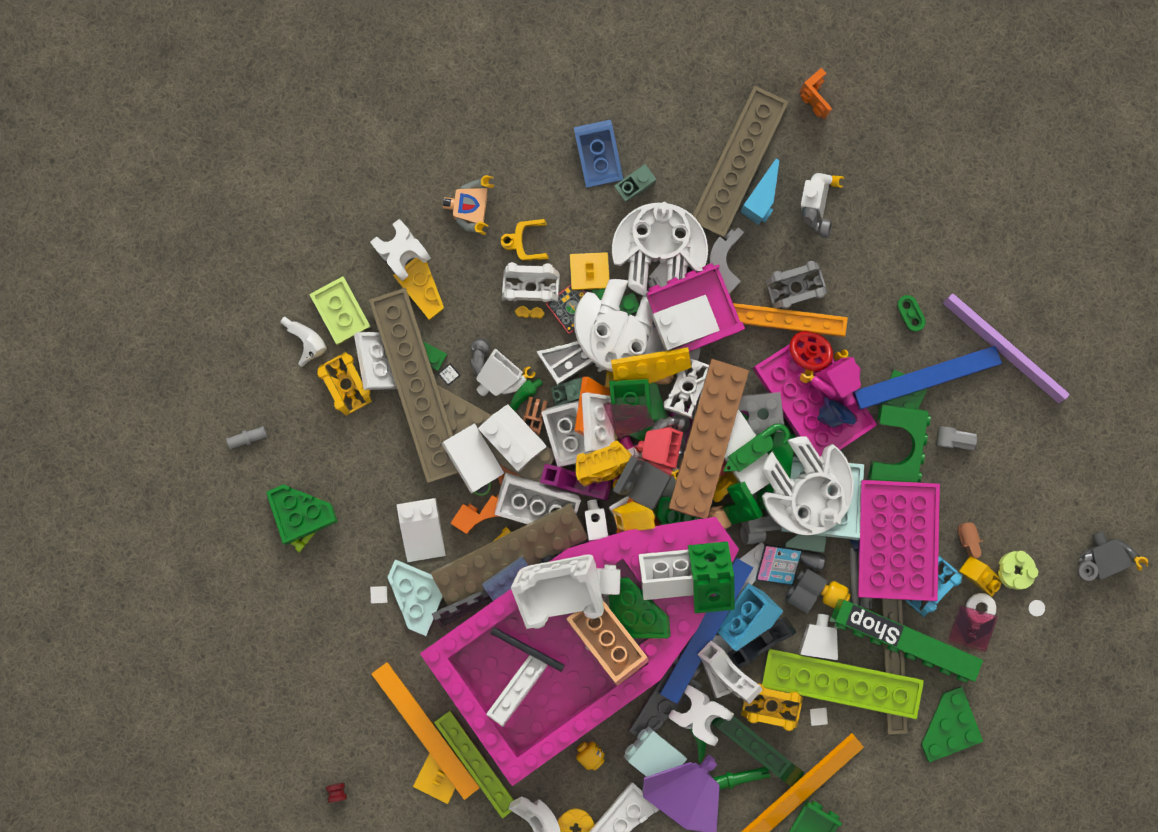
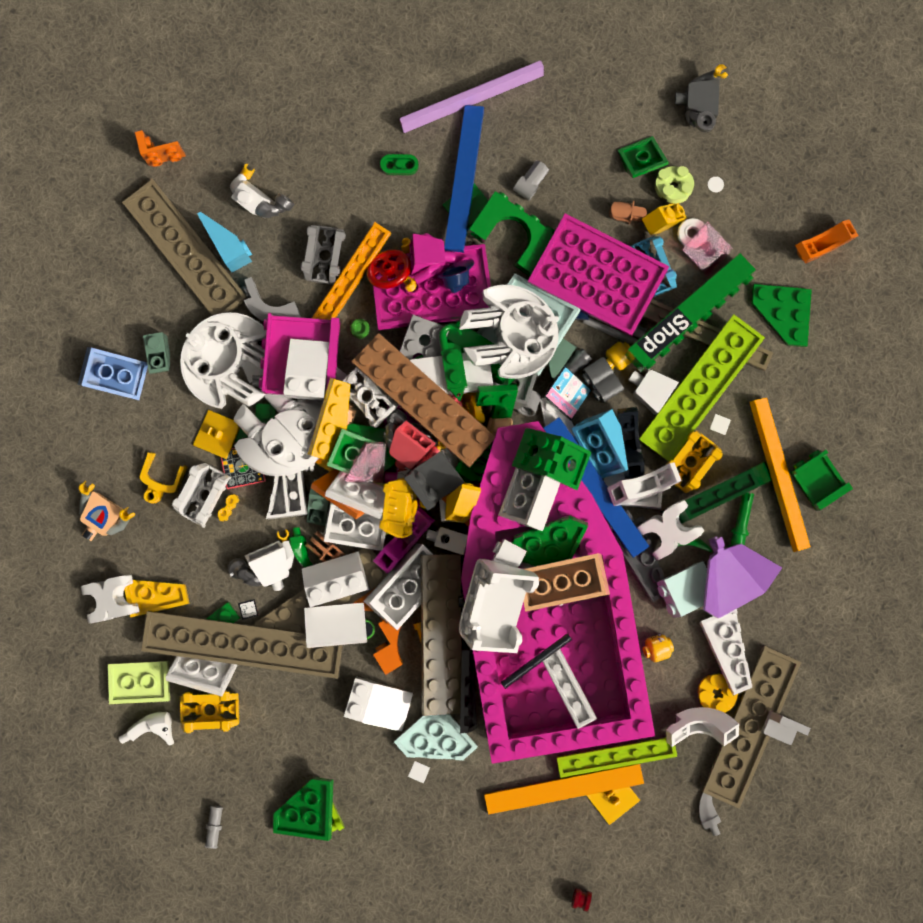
camera: 60 degrees left, 0 degrees up
(503, 580) = (462, 654): sand blue piece -> none
(745, 350) = (360, 328): none -> bright green tile
(1027, 529) = (642, 157): none -> green slope
(1033, 734) = (826, 242): none -> orange arch

